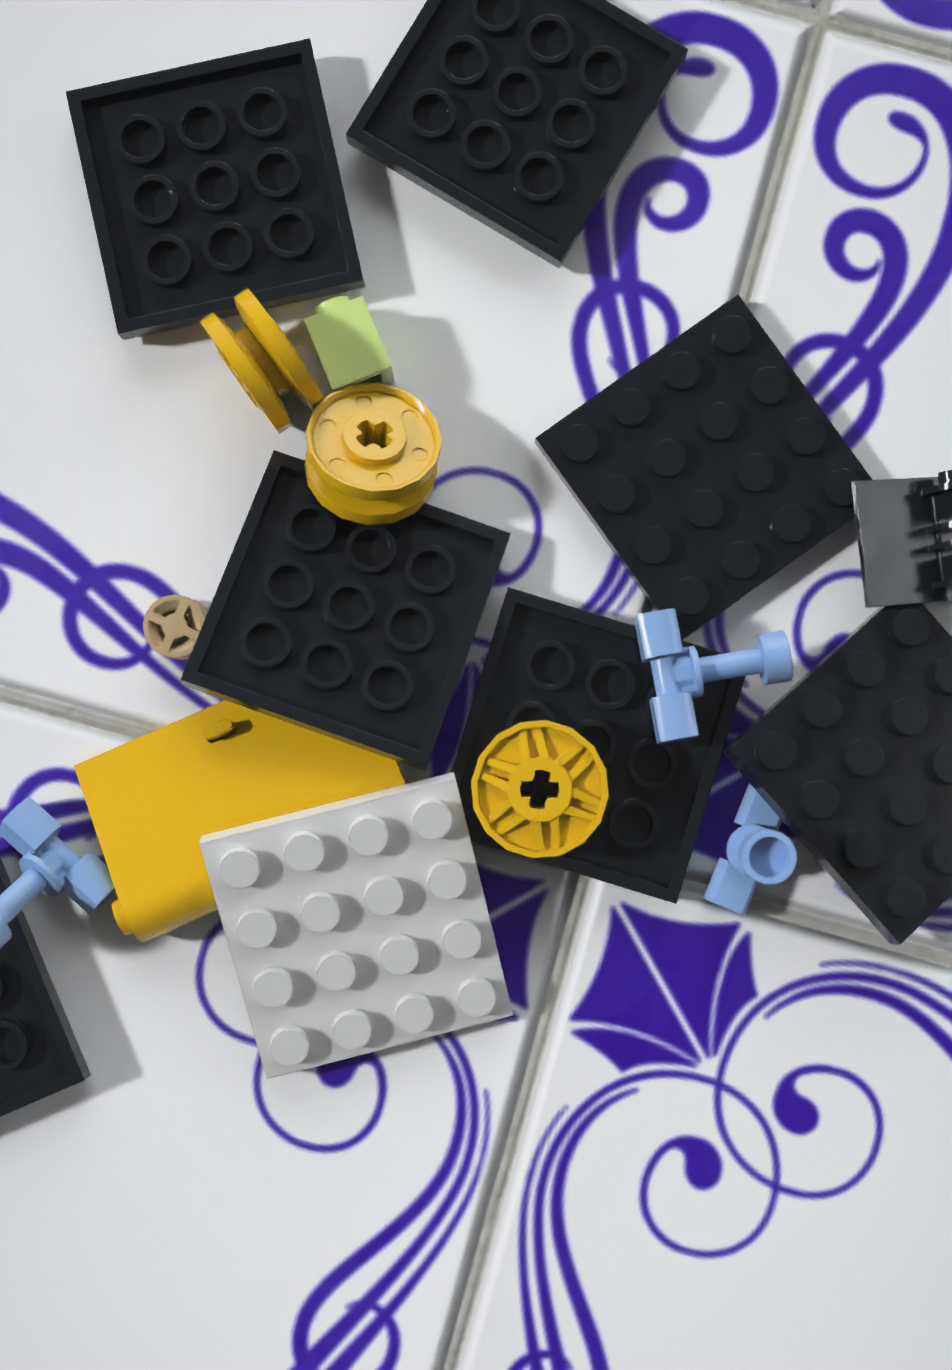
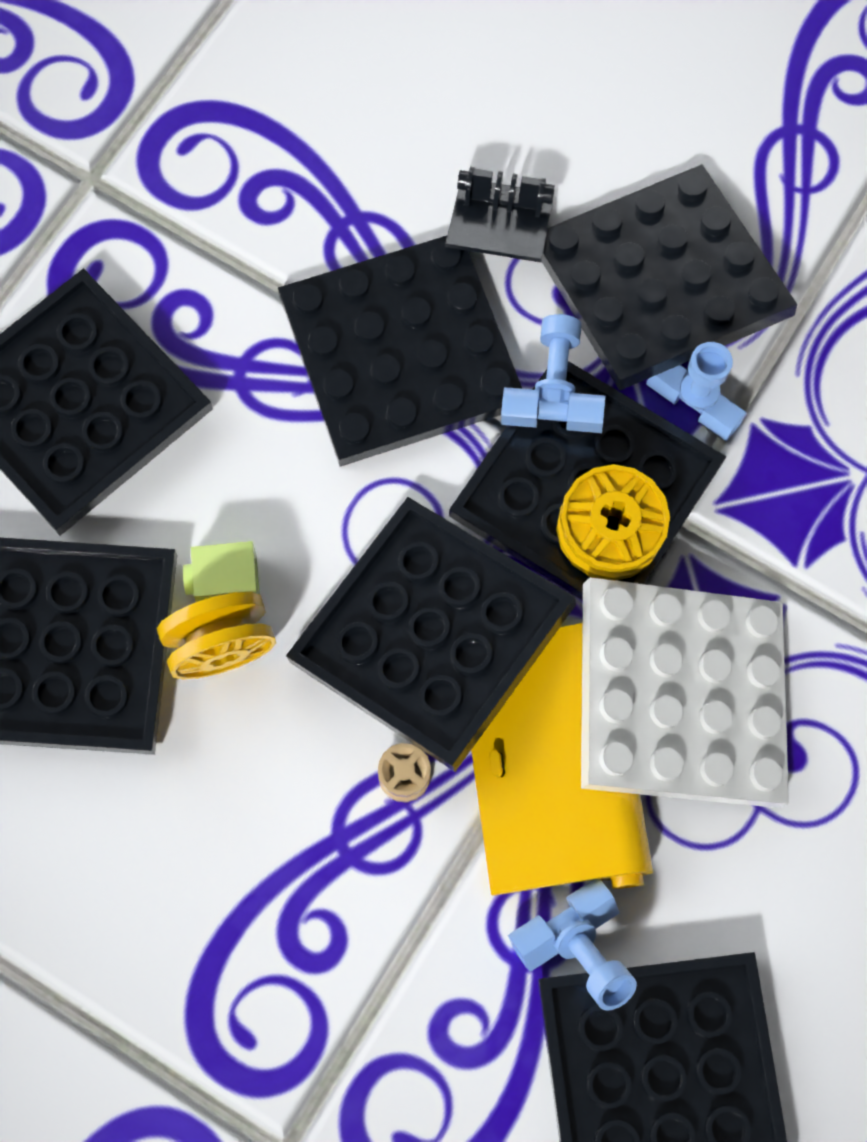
camera: 75 degrees left, 15 degrees down
(372, 453) = (315, 576): yellow wheel -> none

